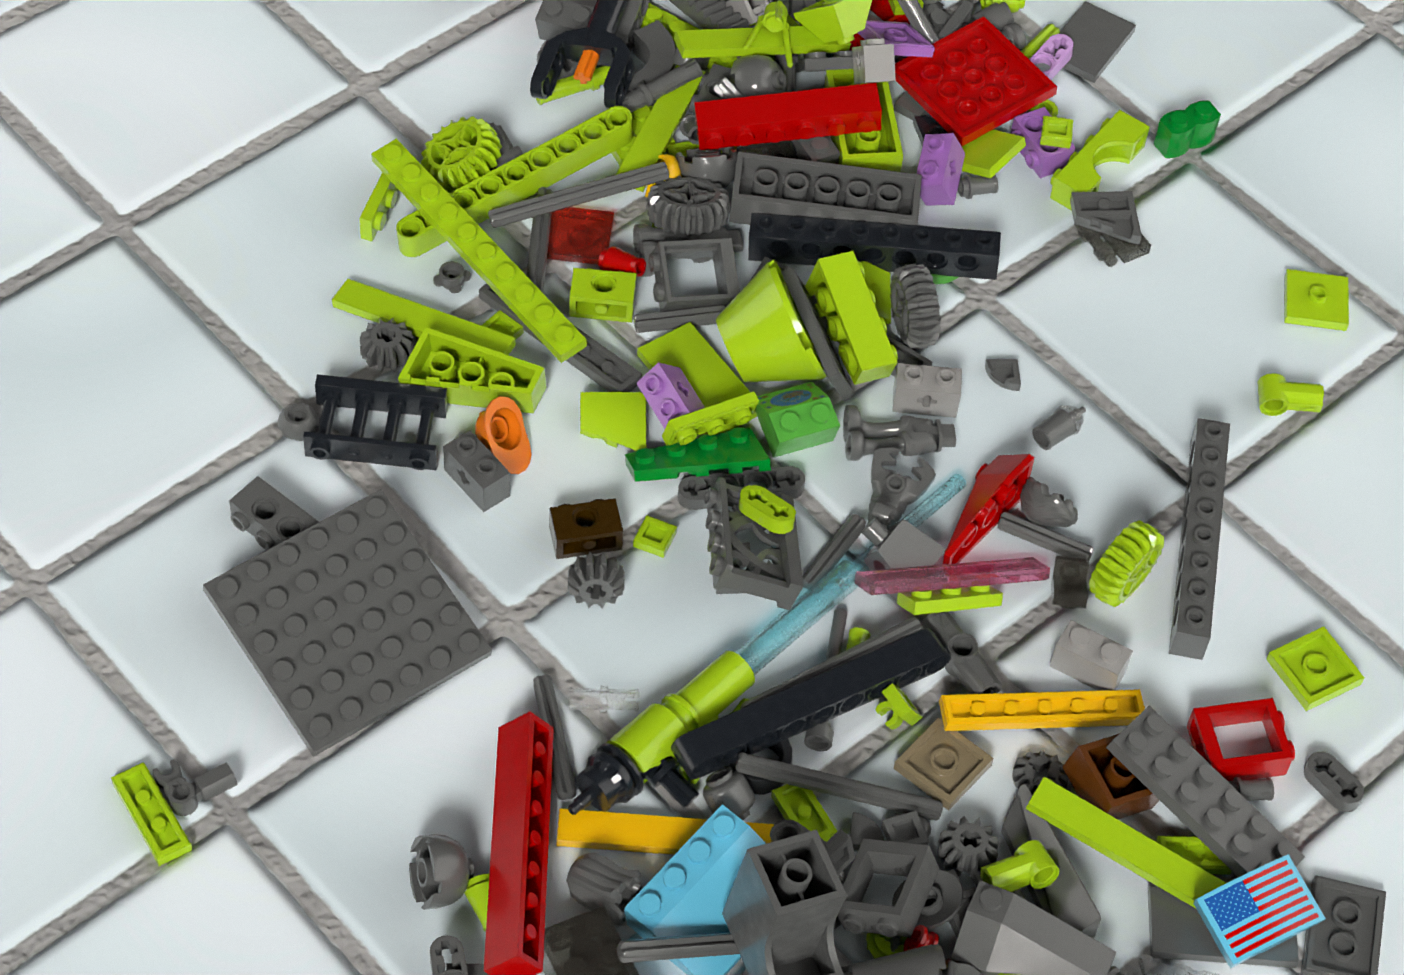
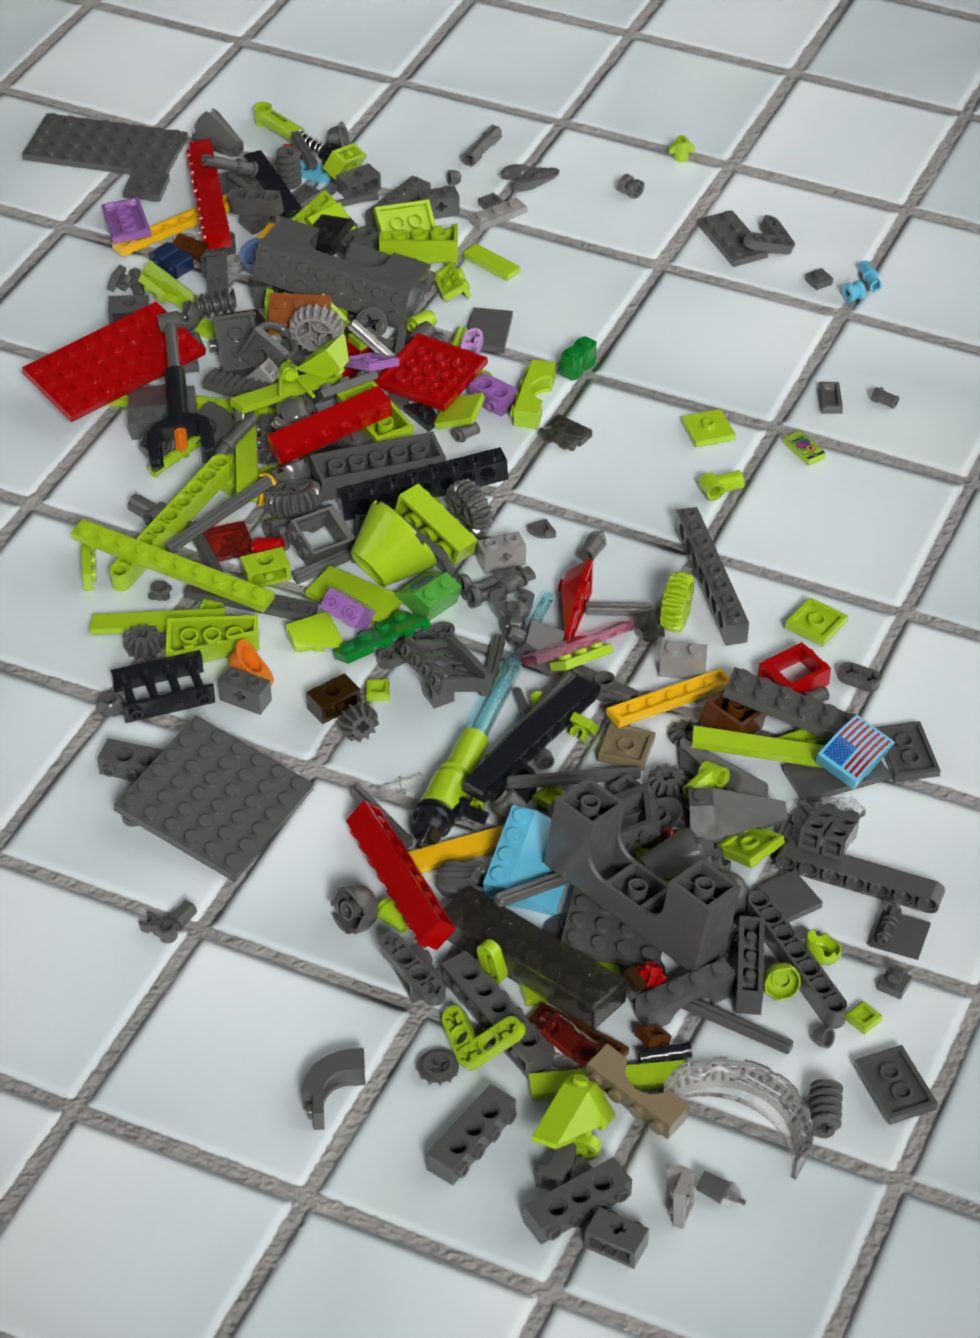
camera: 20 degrees left, 10 degrees down
(151, 814) = (151, 947): lime tile -> none
(461, 152) = (128, 513): lime gear -> none
(710, 419) = (378, 610): lime tile -> none
(767, 509) = (445, 643): lime beam -> none
(873, 61) = (369, 374): light grey brick -> none
(940, 169) = (439, 421): medium lavender brick -> none
(1046, 508) = (611, 590): dark grey hair -> none
(1056, 132) = (501, 383): lime tile -> none
(1107, 213) = (558, 418): dark grey wing -> none

